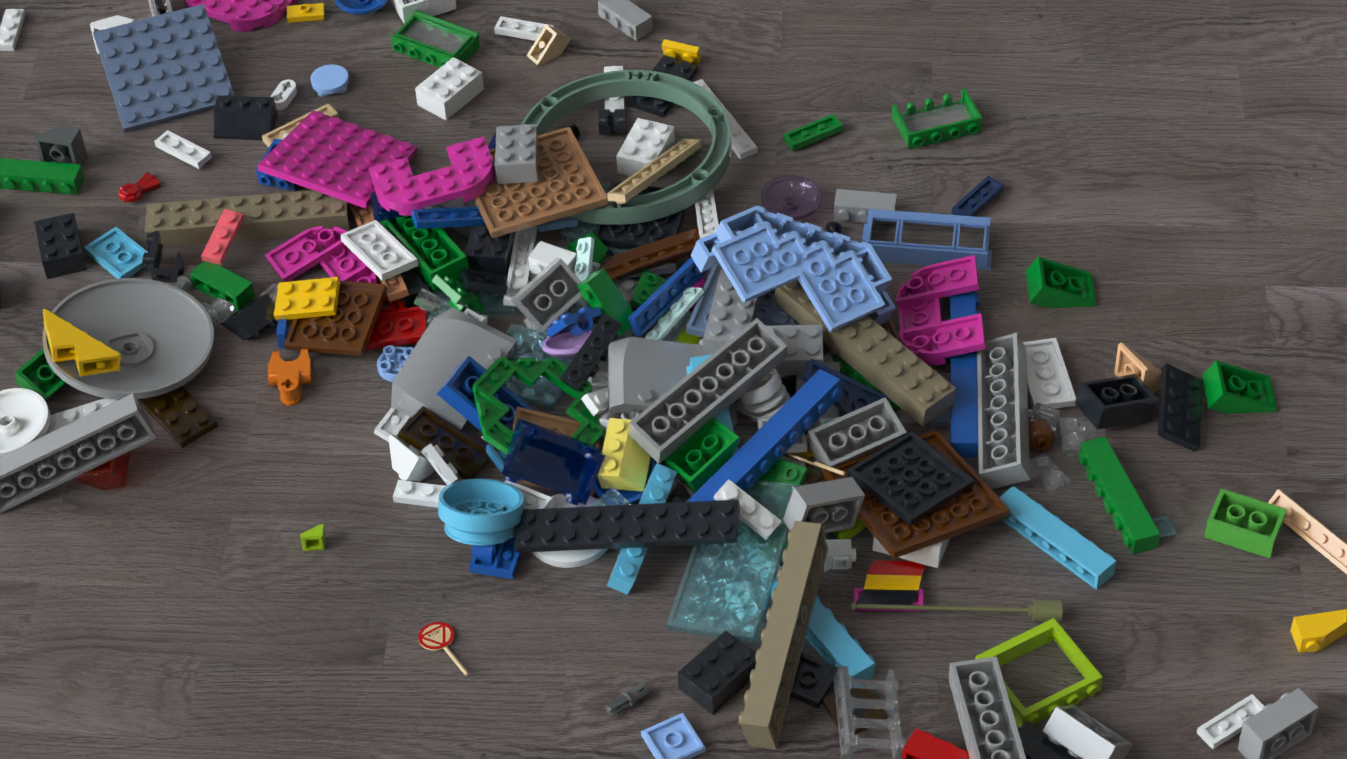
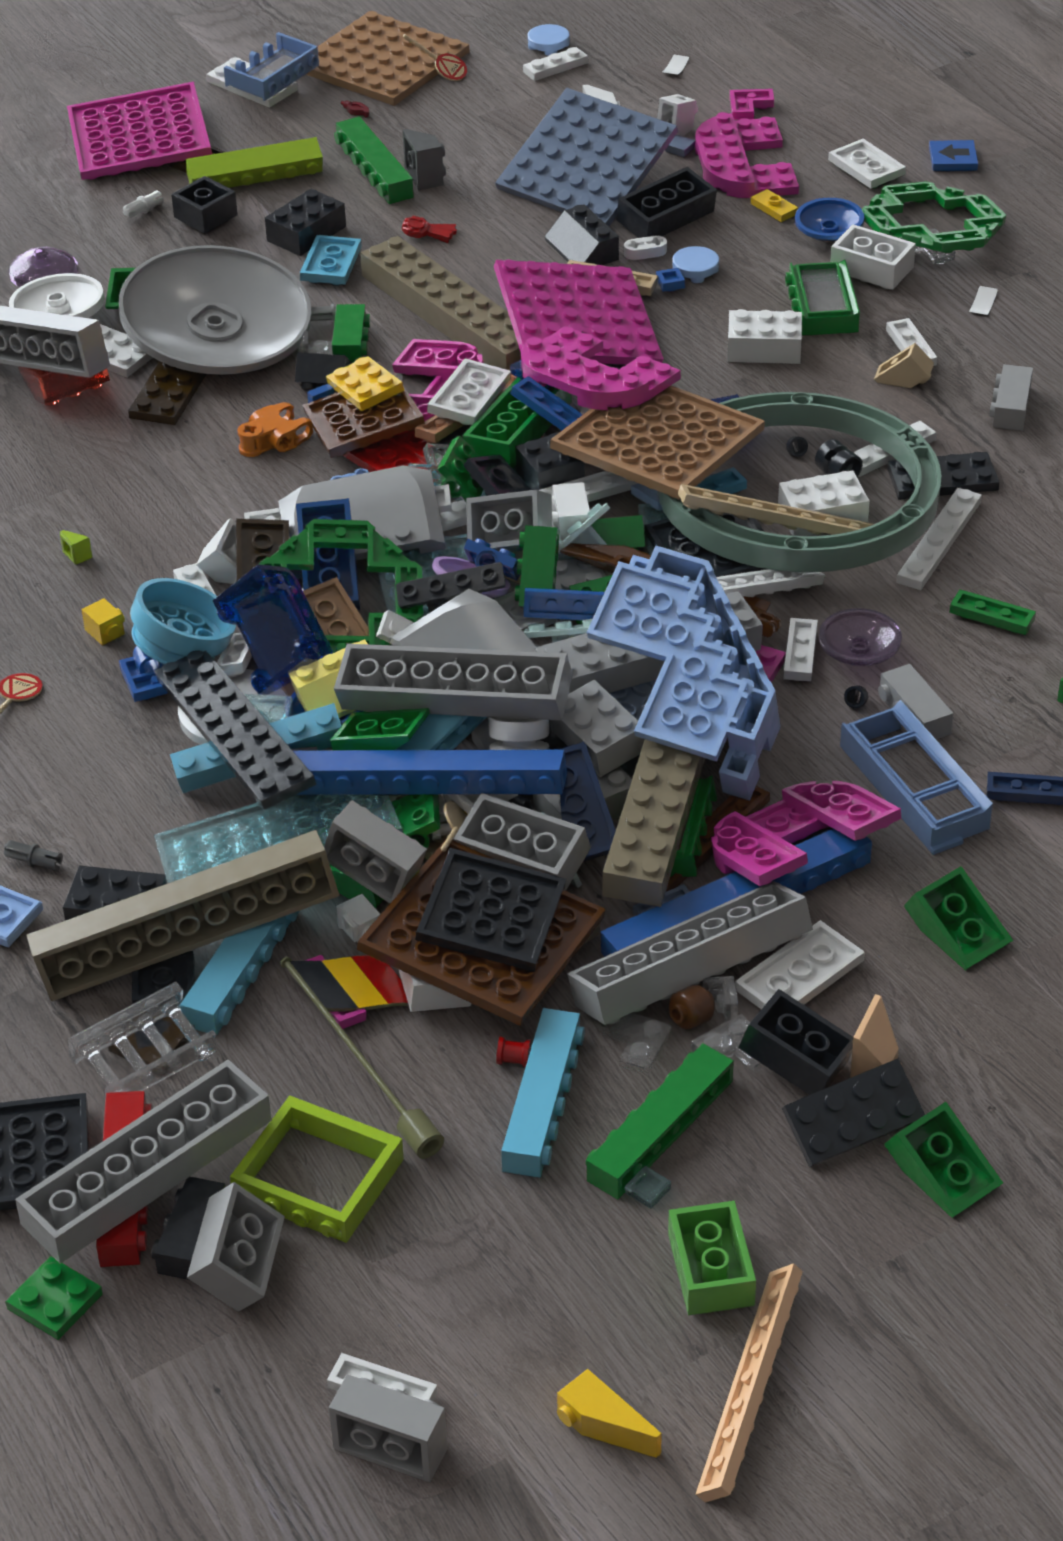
camera: 55 degrees right, 5 degrees down
(71, 343) = (152, 274): yellow slope -> none
(153, 258) = (334, 274): black piece -> none
(183, 149) = (504, 227): white plate -> none
(222, 237) = (395, 295): coral plate -> none
(255, 59) = (666, 204): none -> black brick
(336, 99) = (670, 279): none -> blue plate
(416, 558) = (103, 621): none -> yellow brick
(445, 471) = (215, 564): white plate -> none
(516, 154) = (673, 399): light grey brick -> none
(681, 51) = (1005, 463): yellow plate -> none
(751, 511) = (326, 795): white plate -> none
(1009, 536) = (513, 1051): none -> red bush

